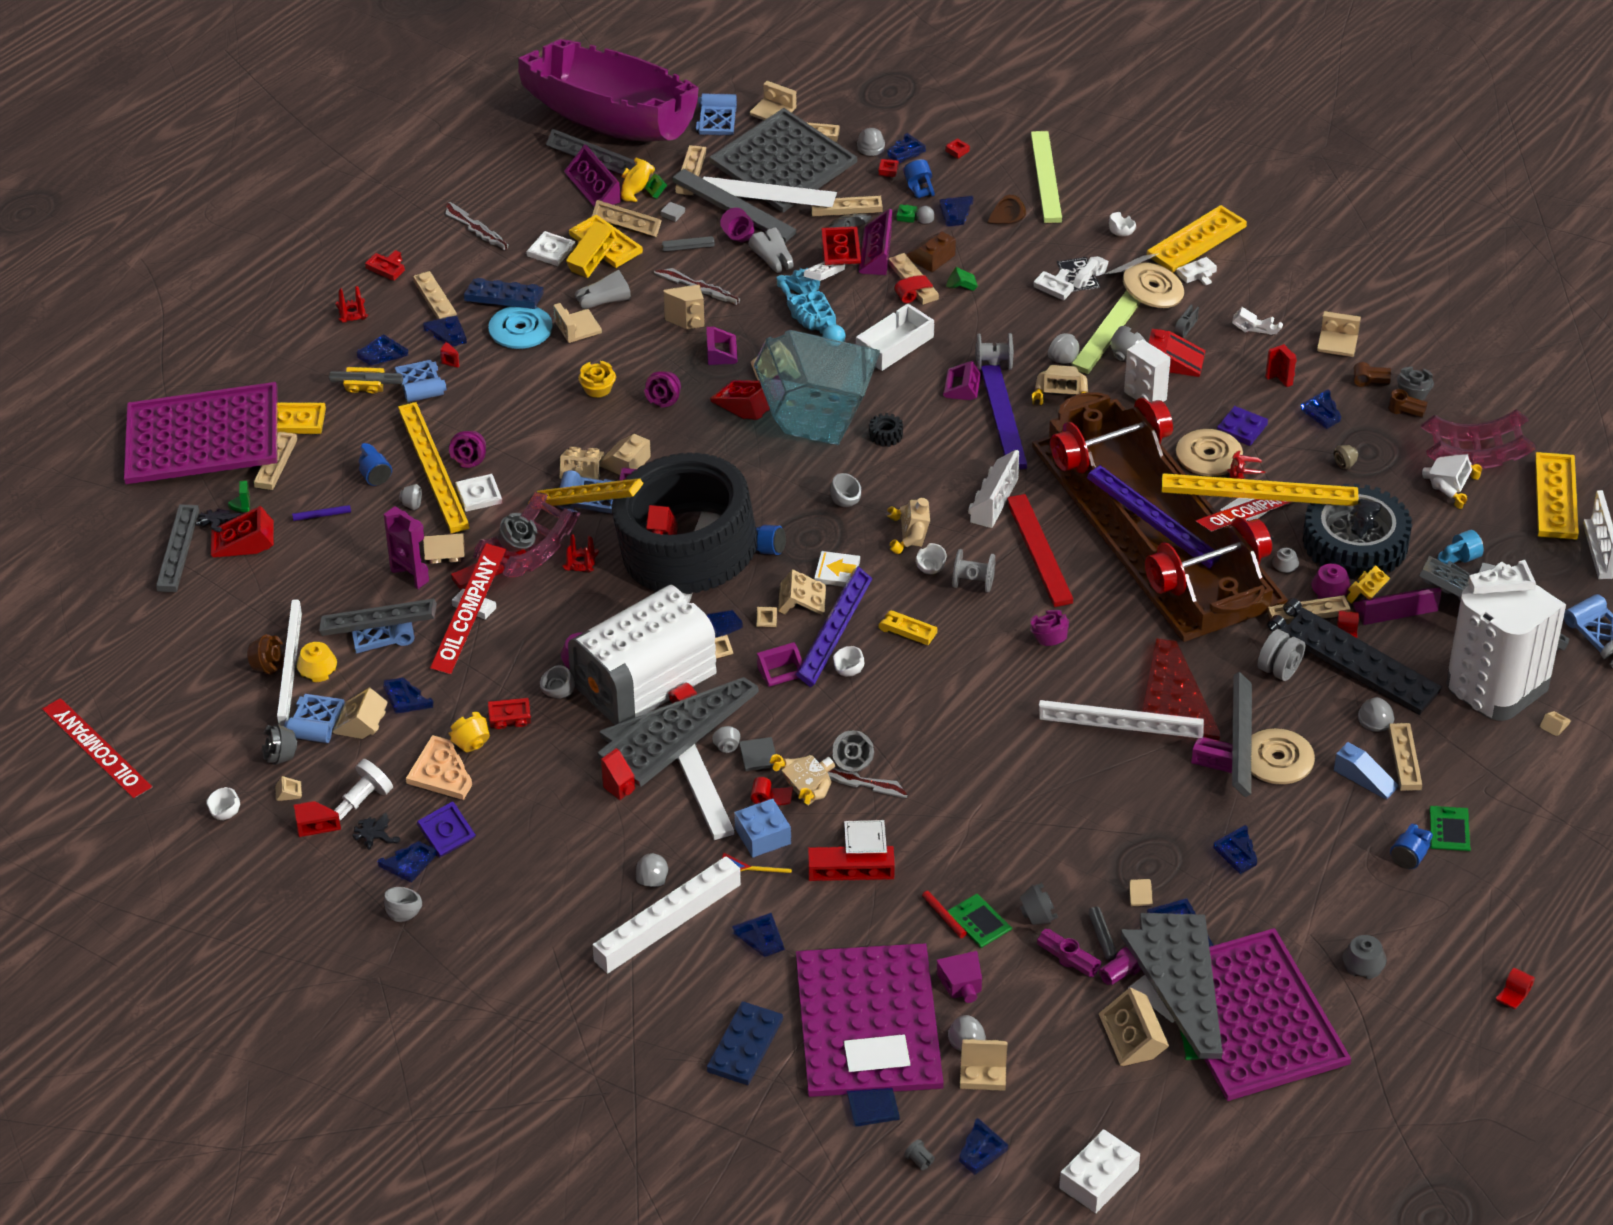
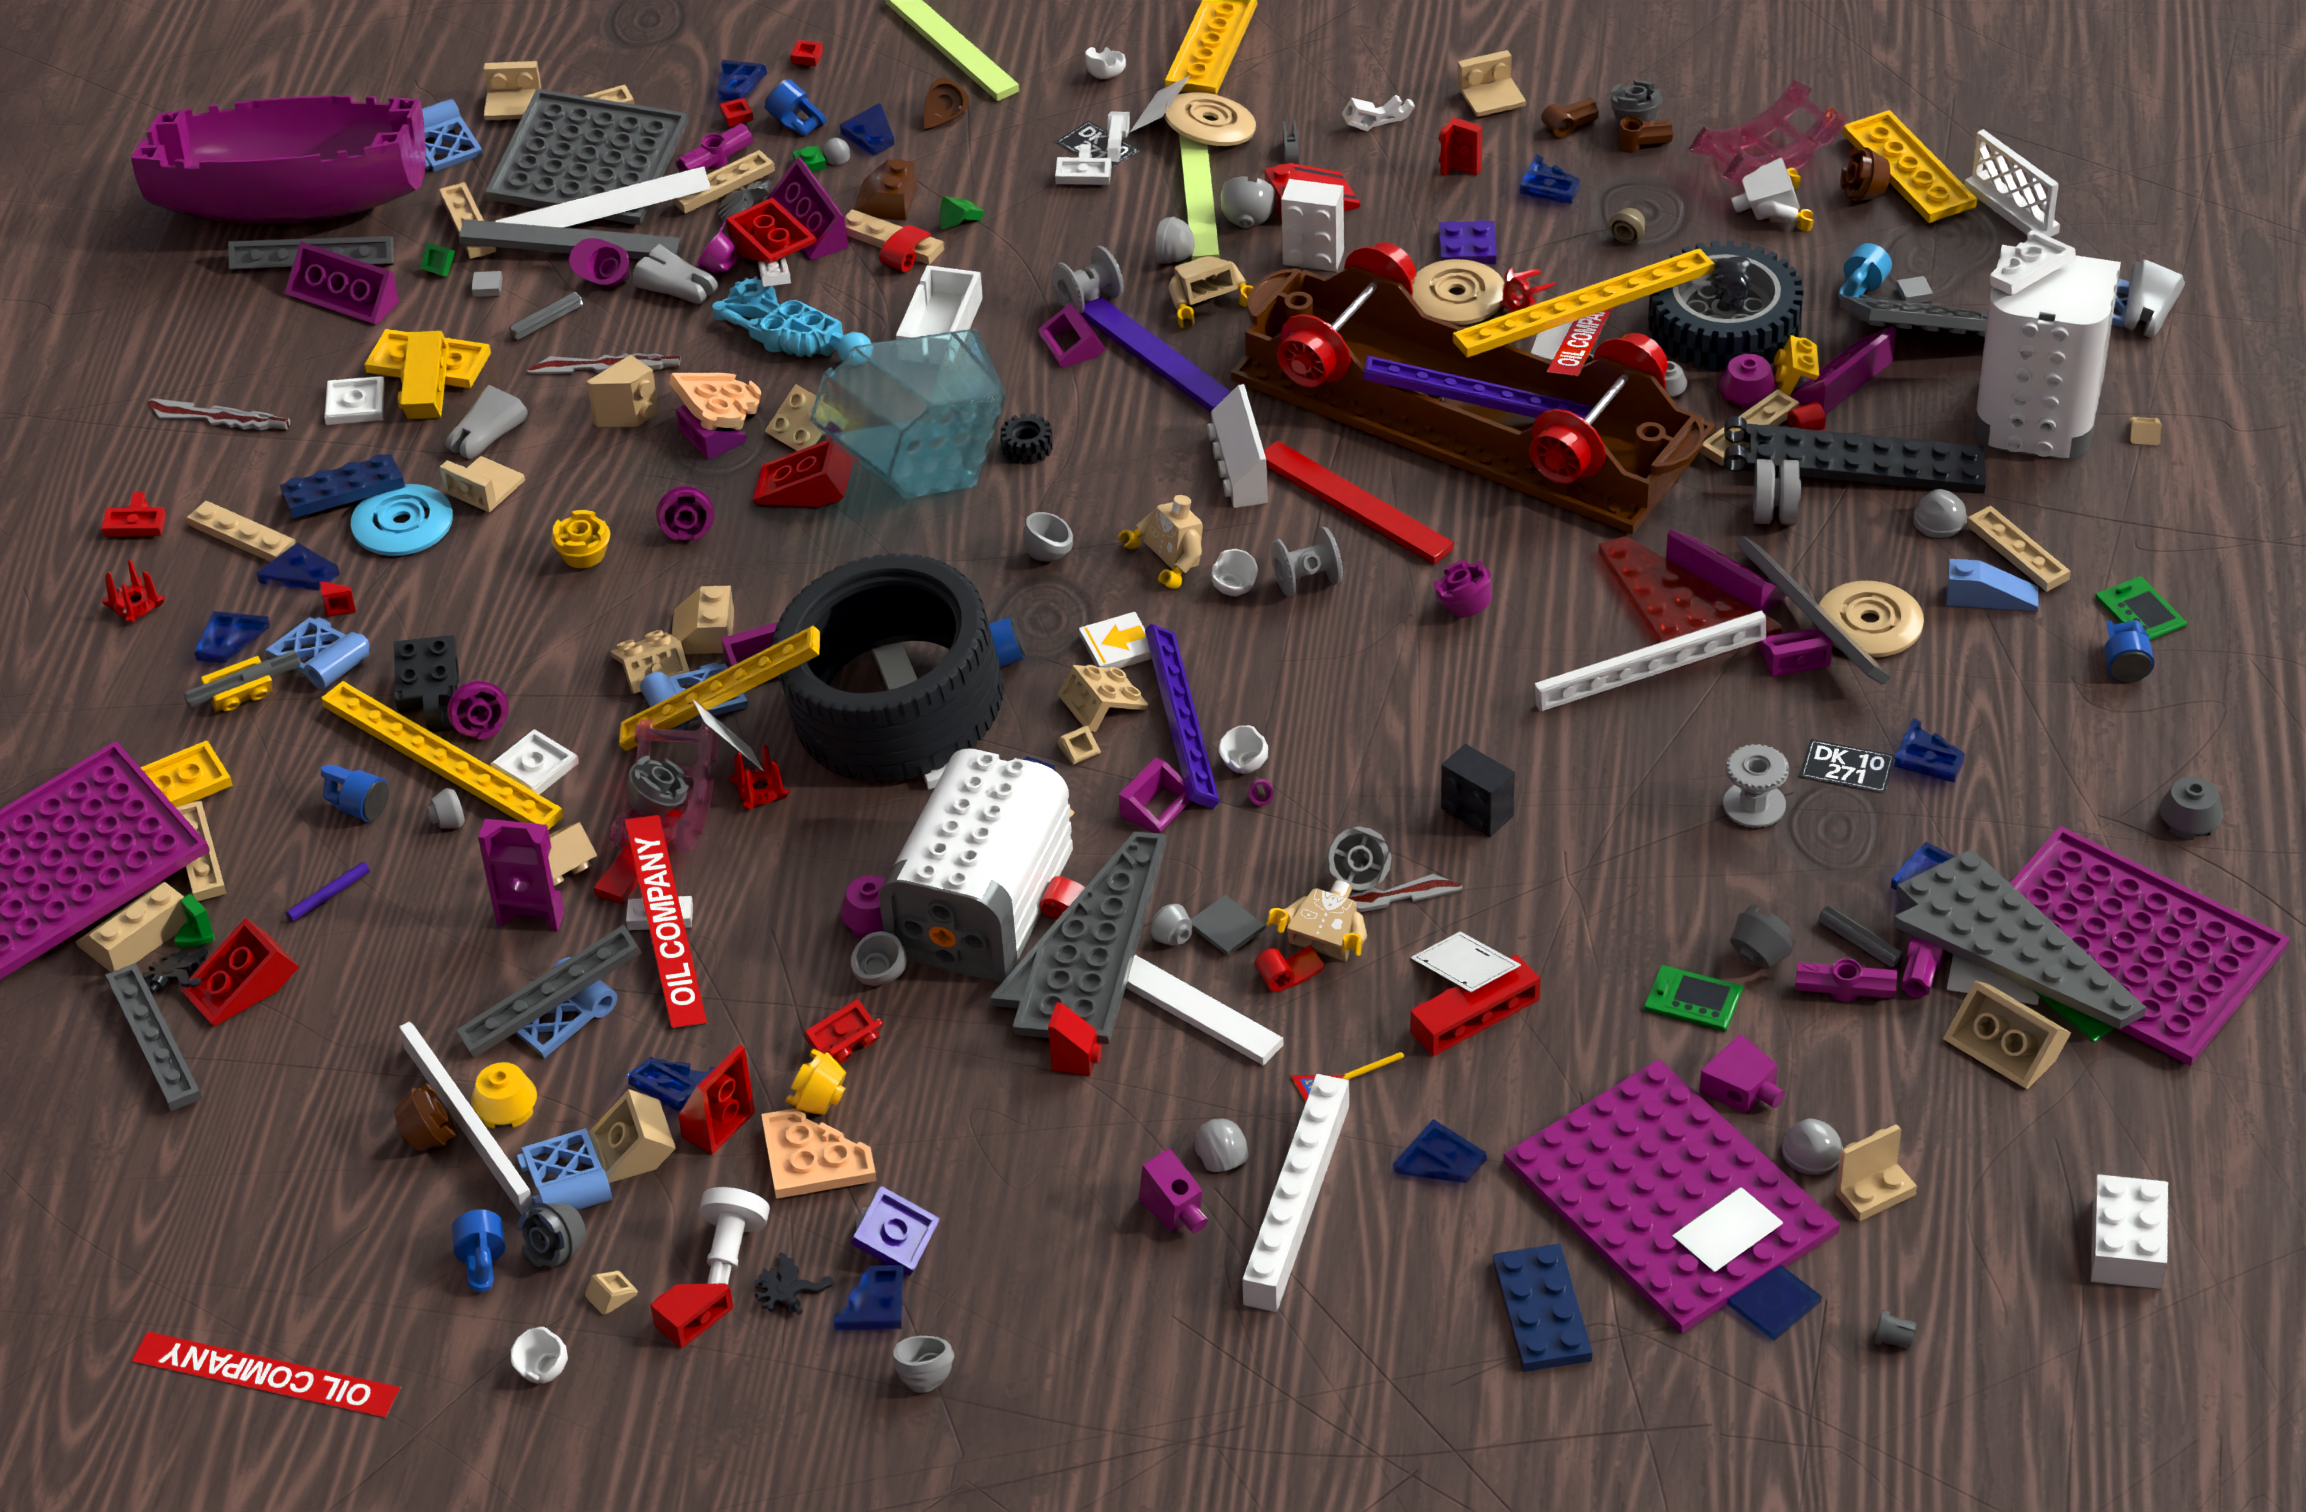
camera: 30 degrees left, 0 degrees up
(212, 488) = (136, 929): none -> tan slope
(241, 732) = (477, 1243): none -> blue piece
(411, 717) = (719, 1104): none -> red slope
(458, 415) = (426, 678): none -> black plate
(575, 521) = (727, 735): none -> white sticker
(599, 881) = (1171, 1193): none -> magenta torso
(627, 218) = (434, 316): tan plate -> none
(635, 179) = (405, 260): yellow animal -> none
(661, 521) = (862, 674): red brick -> none
(734, 331) = (717, 398): none -> light nougat plate
(762, 828) = (1322, 1016): medium blue brick -> none
(806, 246) = (718, 254): none -> magenta piece
(838, 687) = (1254, 792): none -> magenta hinge
(856, 185) = (716, 149): none -> magenta piece
(870, 142) = (683, 89): light grey hat -> none
(908, 627) = (1276, 673): yellow plate -> none
(952, 745) = (1477, 790): none -> black brick
(956, 927) = (1645, 1011): red bar -> none
(981, 1148) = (1958, 1280): clear blue wing -> none
(1112, 820) = (1756, 776): none -> light grey hose
(1140, 892) = (1860, 863): tan slope -> none
(1187, 834) = (1847, 765): none -> black sticker
(1196, 270) = (1246, 78): white plate -> none
(1212, 686) = (1722, 572): none -> magenta slope
(1518, 489) = (1866, 175): none -> reddish brown cone

